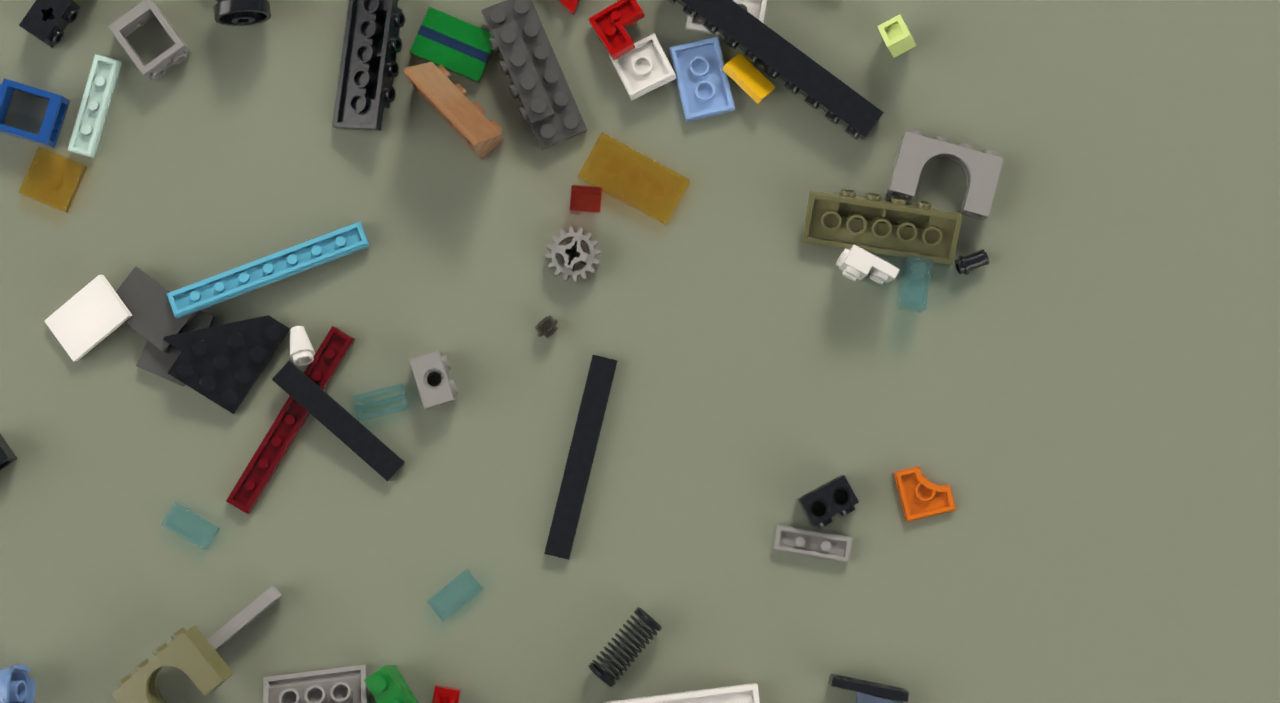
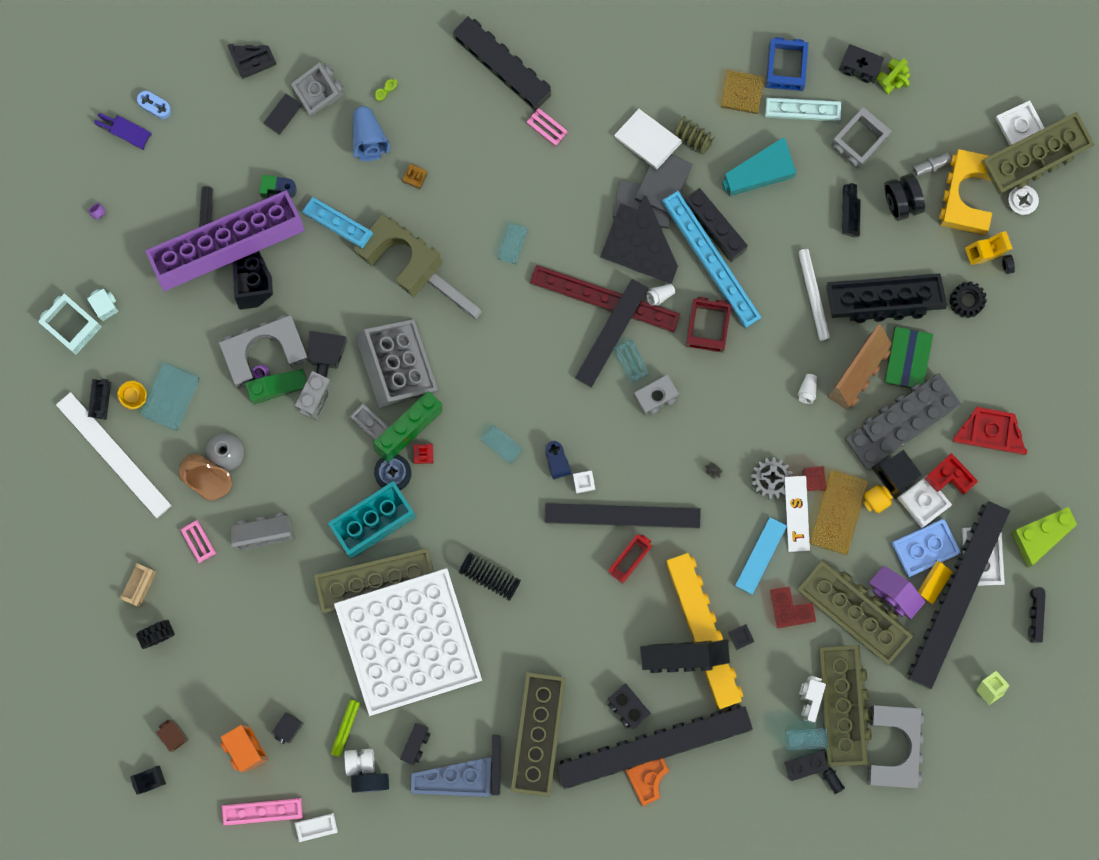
camera: 75 degrees right, 5 degrees down
(25, 461) = (535, 117): none -> bright pink tile
(70, 637) = (414, 176): none -> pearl gold tile
(97, 257) = (693, 136): none -> olive piece
(163, 177) = (763, 169): none -> teal slope
(224, 253) = (716, 225): none -> black brick
(244, 74) = (851, 211): none -> black hinge
(333, 147) = (814, 295): none -> white axle
(379, 300) = (703, 343): none -> dark red window
(468, 182) = (807, 391): none -> white cone
(497, 527) = (557, 463): none -> dark blue piece
(527, 497) = (584, 482): none -> white plate
(600, 92) = (897, 473): none -> black plate
(621, 438) = (641, 541): none -> red window
(625, 232) = (797, 513): none -> white sticker
(627, 125) = (878, 498): none -> yellow head
(669, 290) = (760, 556): none -> medium azure tile
(750, 273) = (787, 614): none -> clear red plate
(751, 384) = (702, 626): none -> yellow brick
(752, 127) = (897, 592): none -> medium lavender brick
(765, 184) = (856, 611): none -> olive plate
(769, 338) = (741, 637): none -> black tile
(781, 416) = (685, 655): none -> black wedge
(812, 543) = (594, 702): light grey tile -> none
(842, 626) = (538, 734): none -> olive brick
(887, 480) = (655, 747): none -> black brick
(946, 291) = (806, 765): none -> black piece

